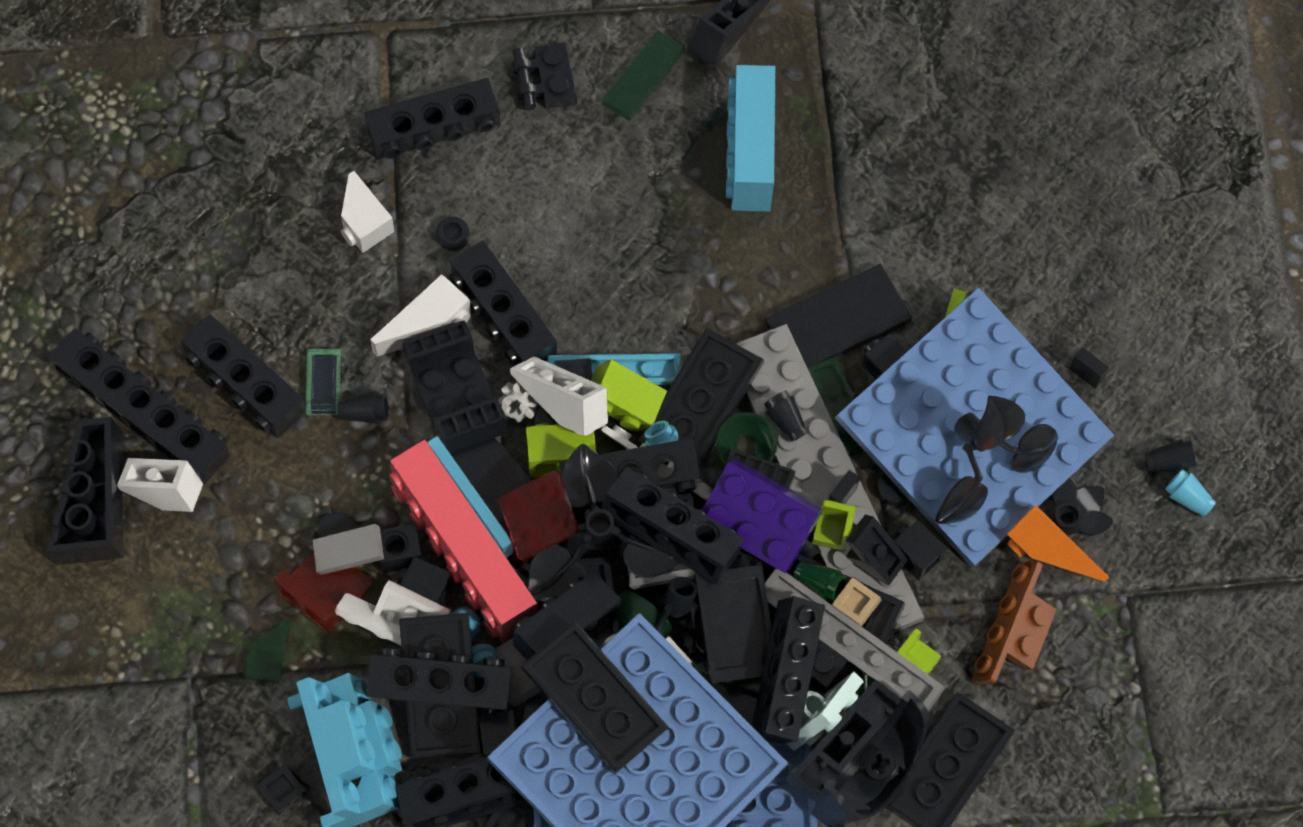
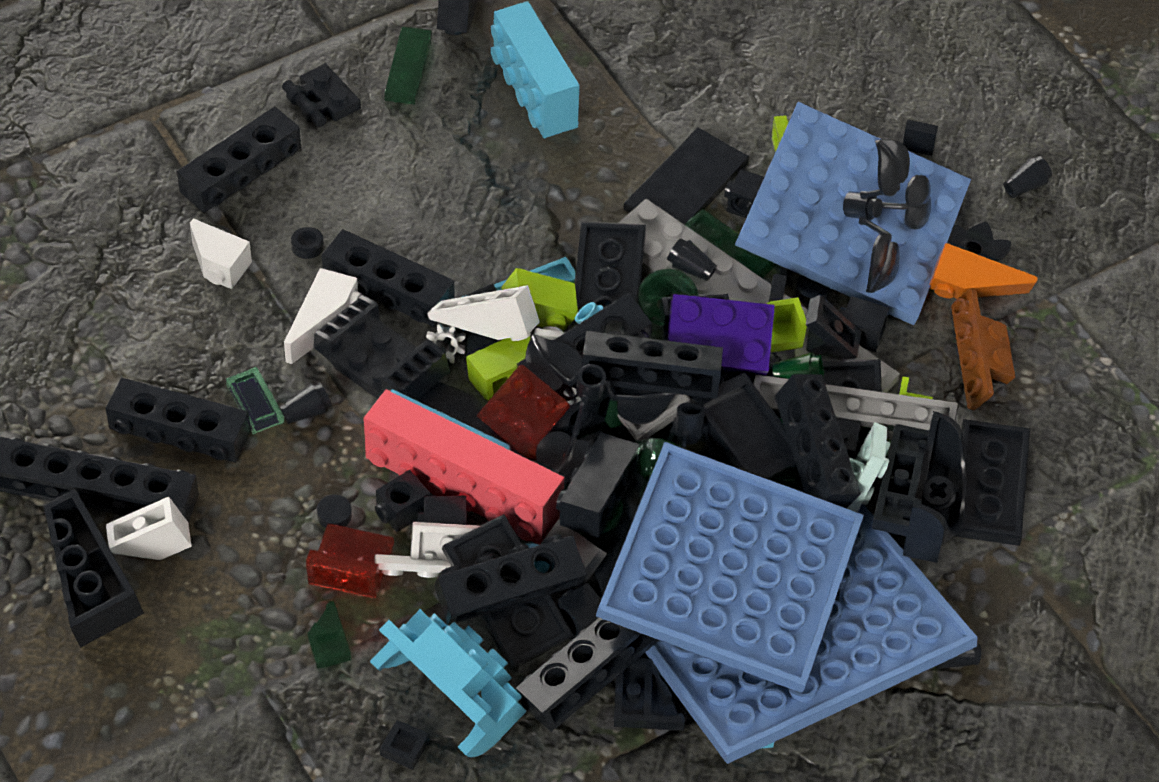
camera: 25 degrees left, 15 degrees down
(348, 549) = (359, 515): light grey tile -> none
(594, 697) = (666, 522): black tile -> none
(857, 601) = (842, 370): tan plate -> none
(1190, 493) = (1059, 197): medium azure cone -> none

